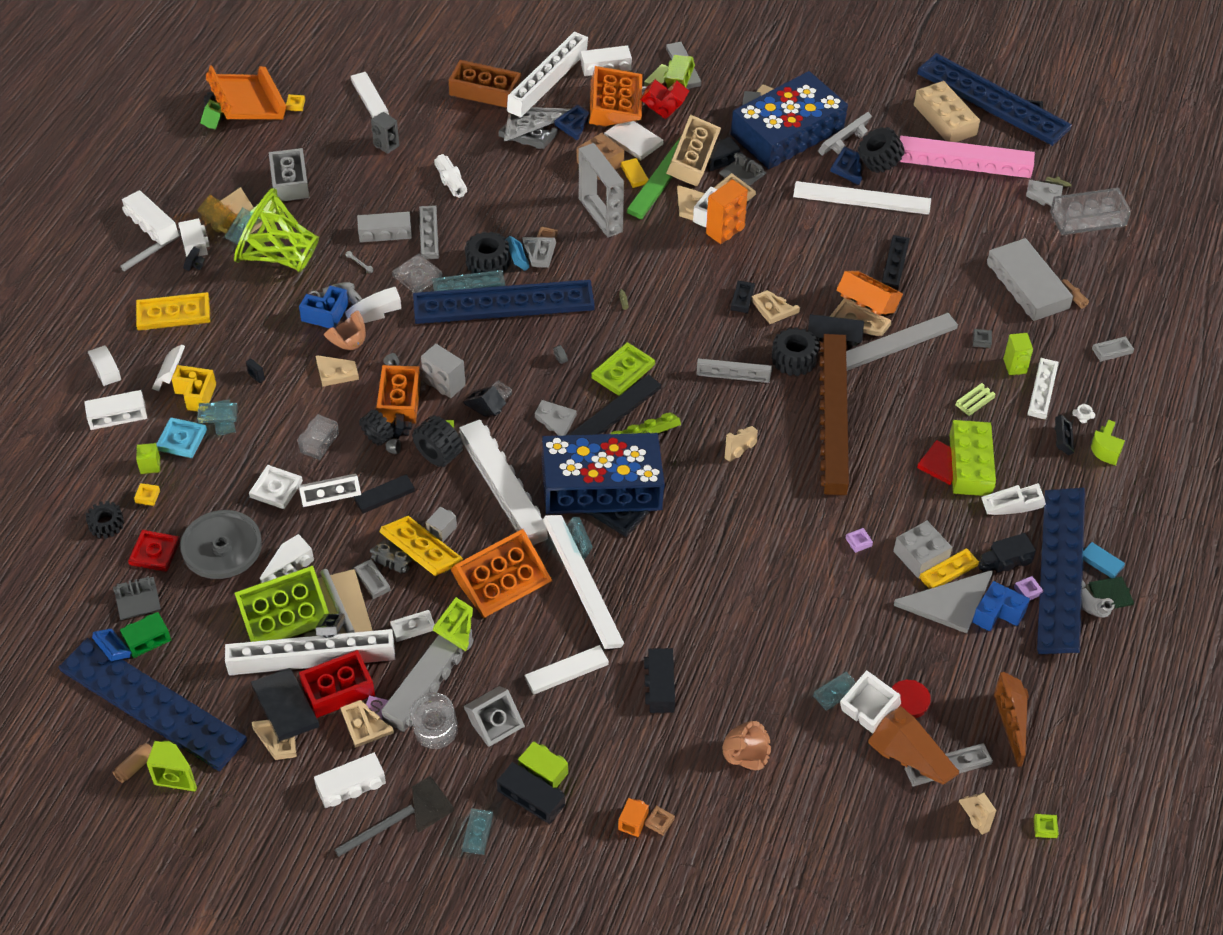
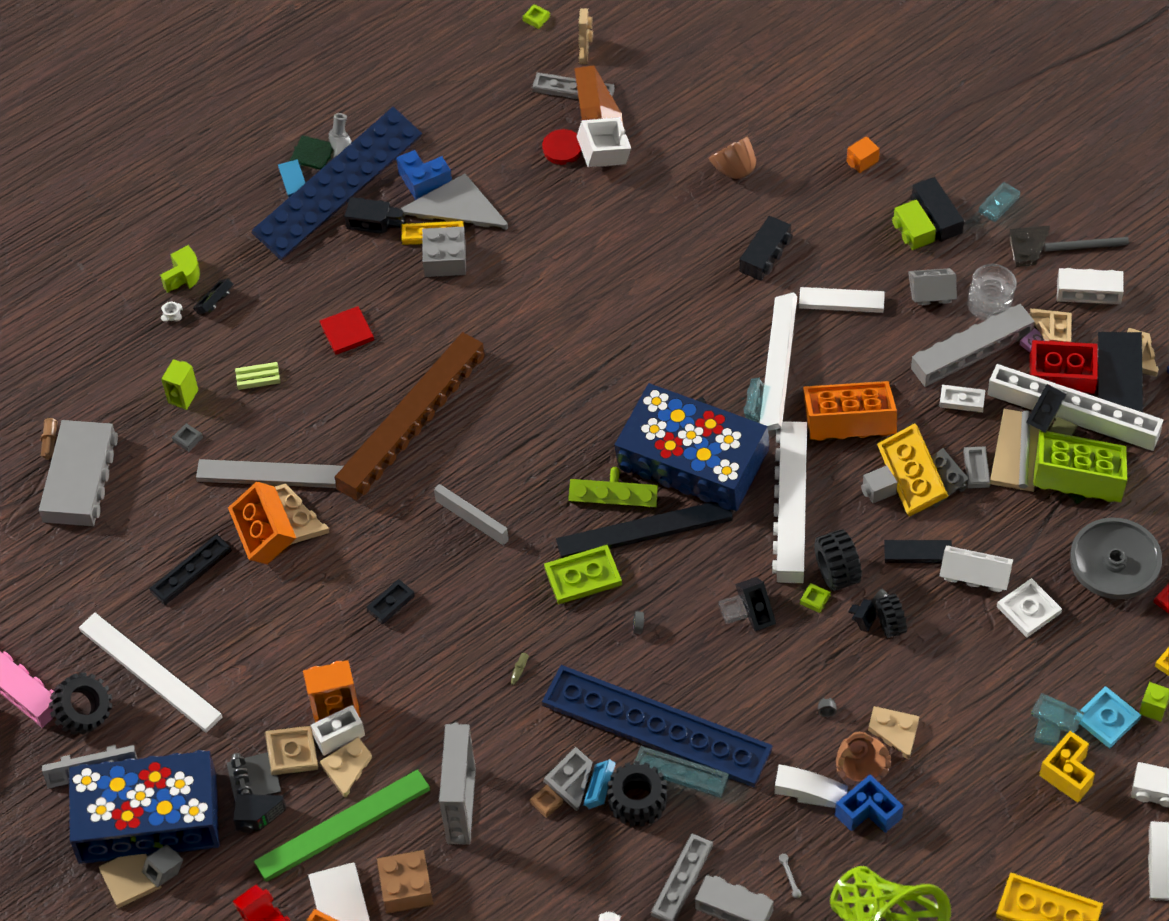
camera: 145 degrees left, 5 degrees up
(168, 367) = (1089, 805): white slope -> none
(255, 370) = (988, 764): black tile -> none
(288, 559) = (1052, 517): white slope -> none
(318, 437) = (956, 644): clear brick -> none
(352, 295) = (838, 833): light grey arm -> none
(399, 392) = (844, 647): orange brick -> none
(416, 273) = (731, 821): clear plate -> none
(443, 370) = (783, 648): light grey brick -> none
(455, 624) = (926, 359): lime wing -> none
(555, 417) = (690, 555): light grey wing -> none
(634, 172) = (378, 842): yellow tile -> none
(659, 820) = (838, 149): medium nougat tile -> none
(693, 150) = (293, 818): tan brick -> none
(739, 443) = (528, 427): tan wing -> none
(773, 307) = (368, 572): tan wing -> none
(805, 353) = (389, 487): black tyre -> none
(823, 325) = (330, 505): black brick -> none
(834, 691) = (620, 176): clear light blue plate -> none
(848, 165) = (126, 722): dark blue wing -> none
(859, 540) = (489, 294): lavender tile -> none
(972, 458) = (320, 311): lime brick -> none
(1012, 706) = (487, 94): dark orange wedge -> none
(1014, 500) = (319, 259): white slope -> none
(1028, 588) = (382, 181): lavender plate -> none
(1042, 388) = (188, 351): white tile -> none
(1113, 349) = (73, 364): light grey tile -> none

